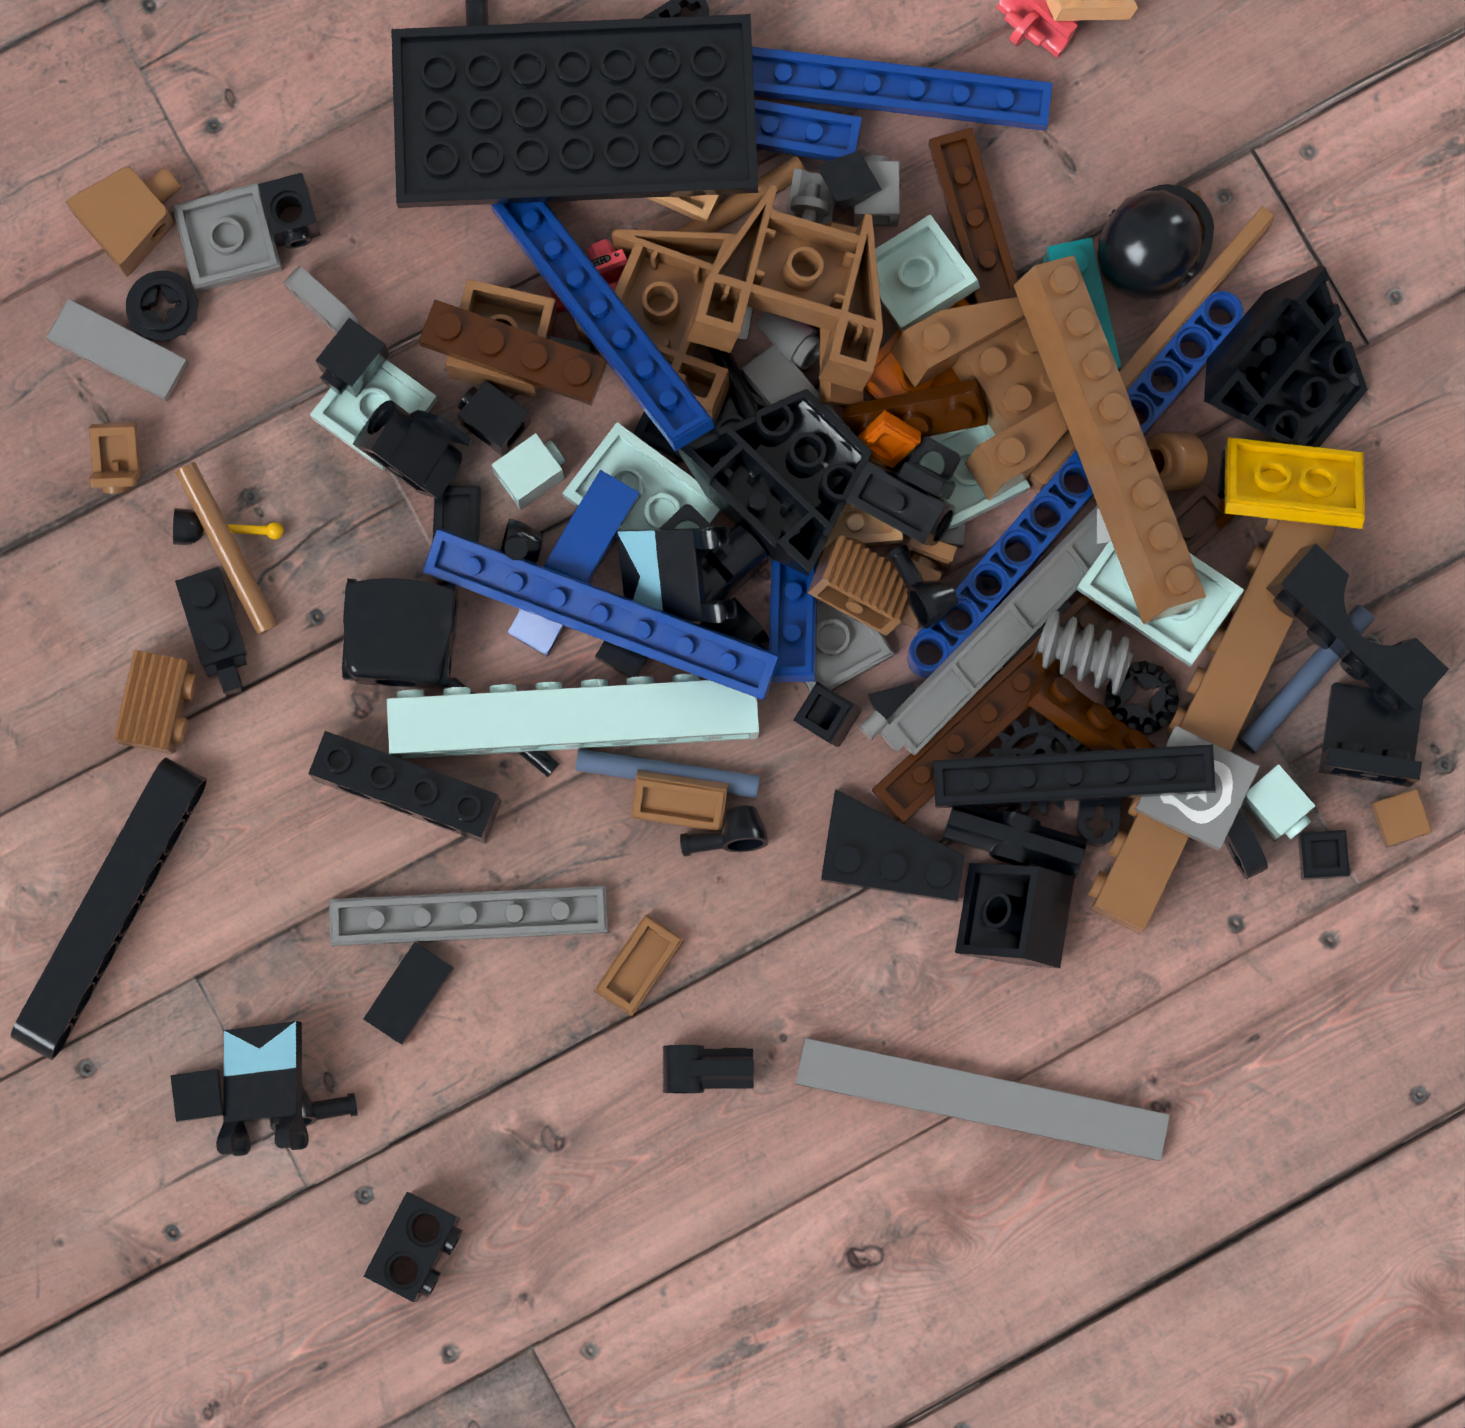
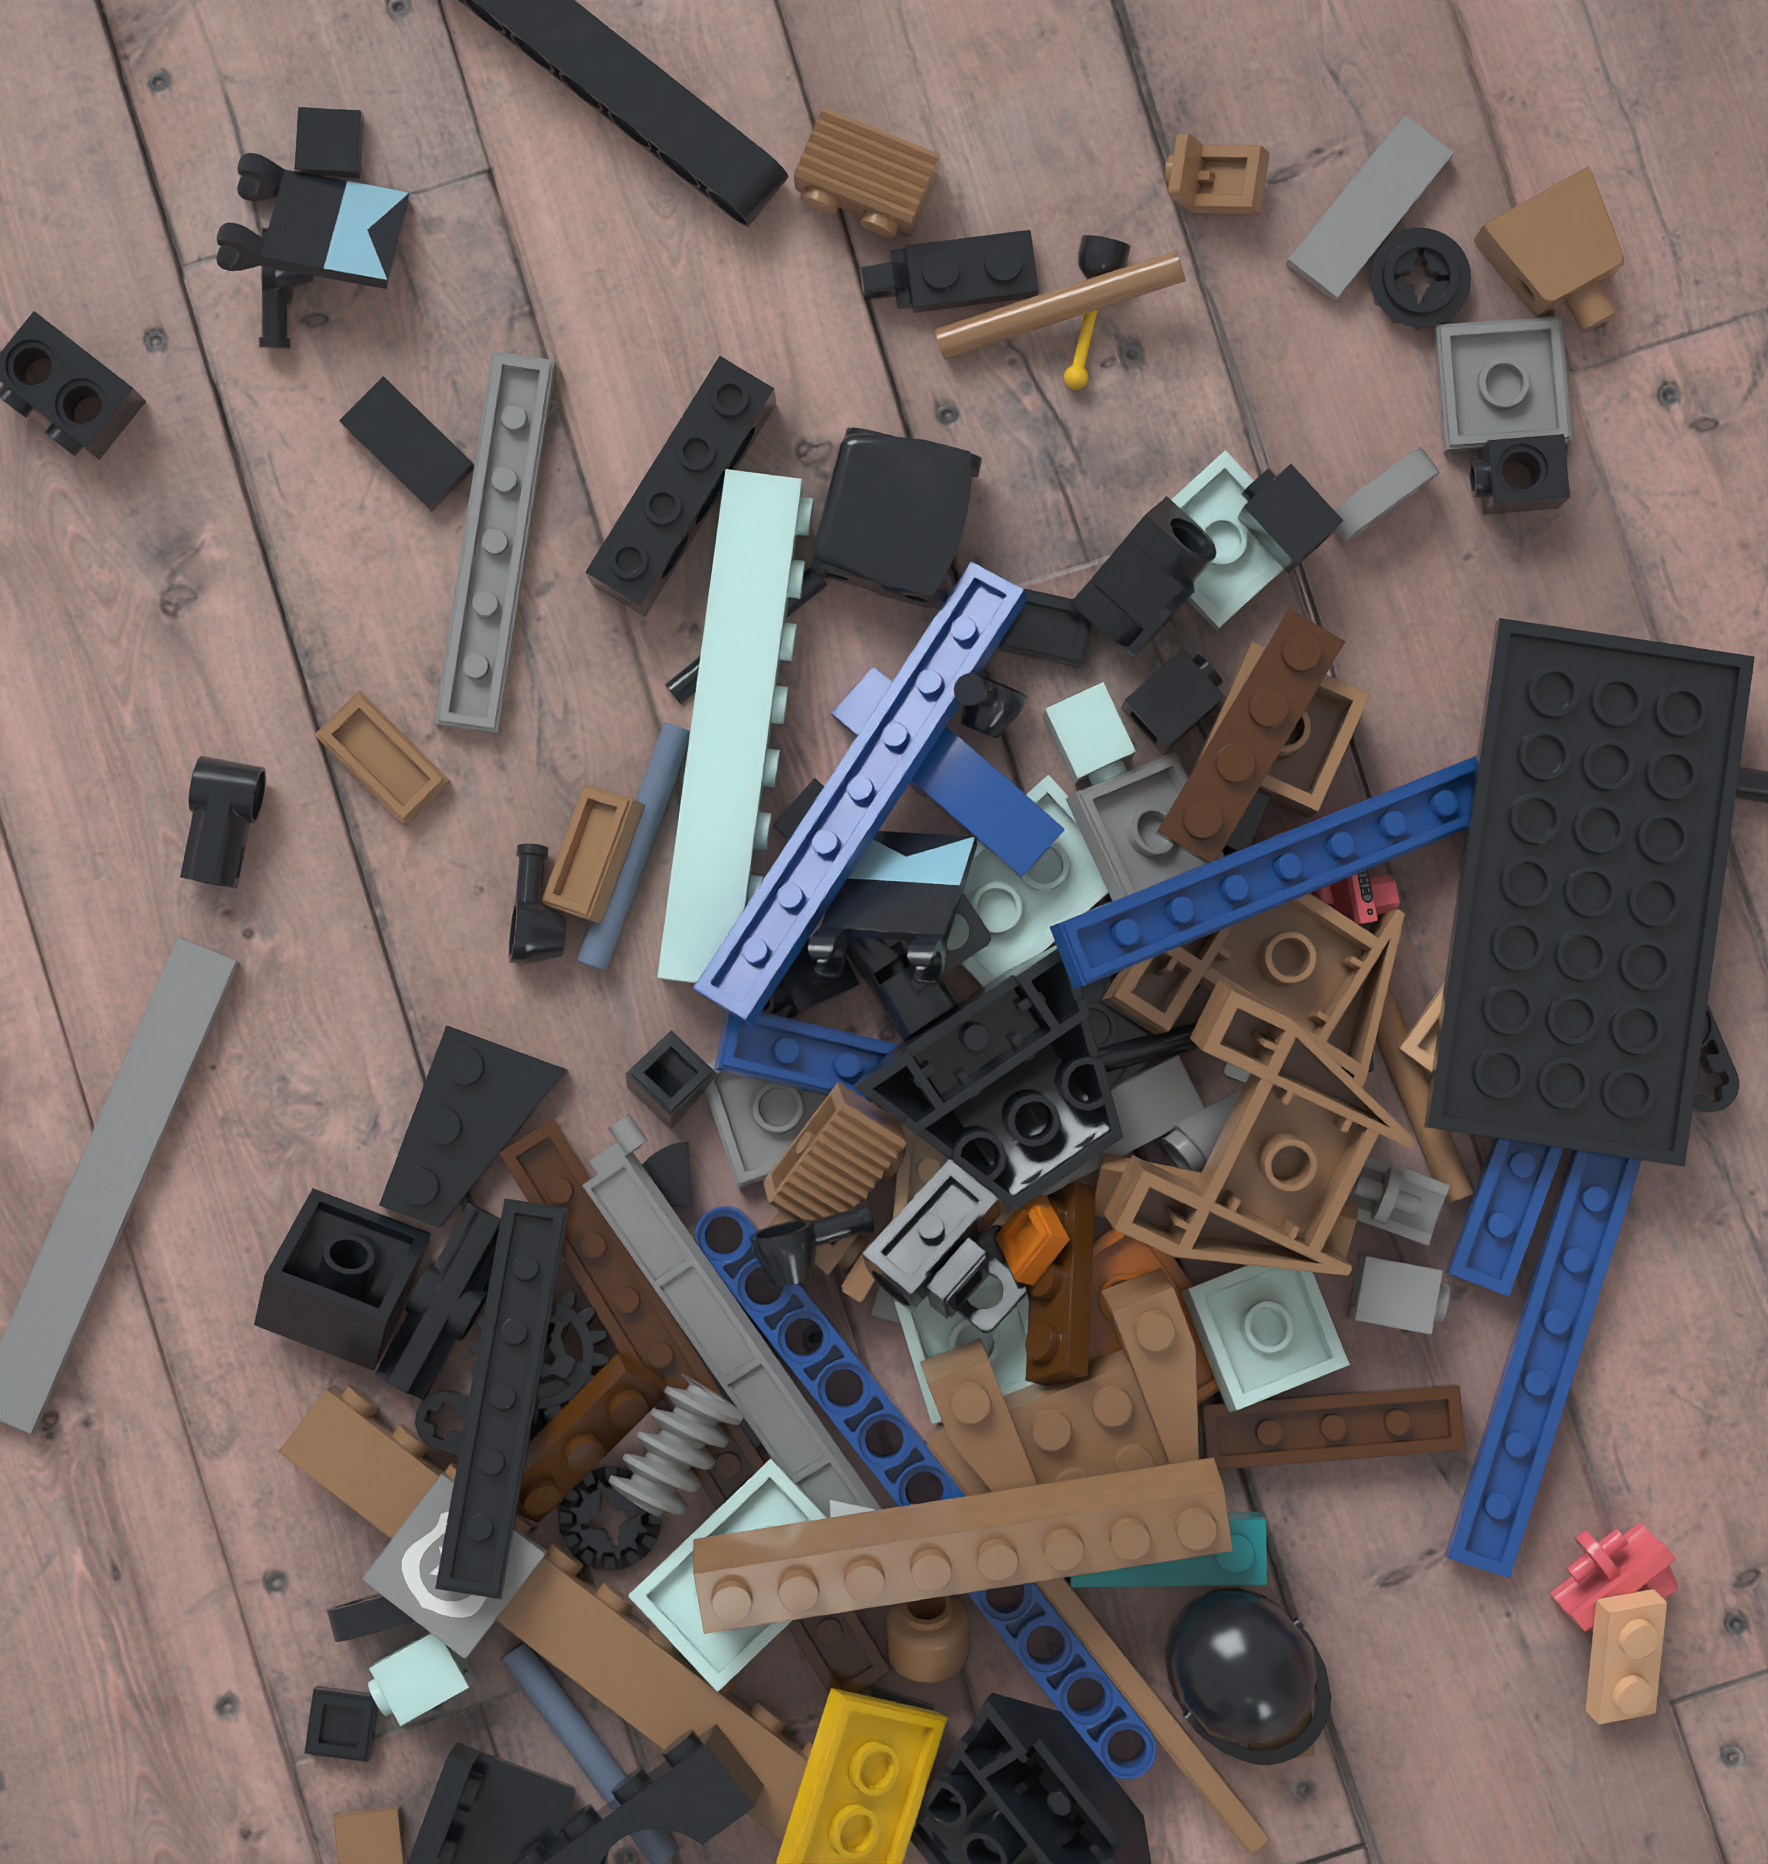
camera: 100 degrees right, 5 degrees up
(590, 432) = (1122, 822): none -> light grey tile
(849, 180) = (1414, 1257): black slope -> none

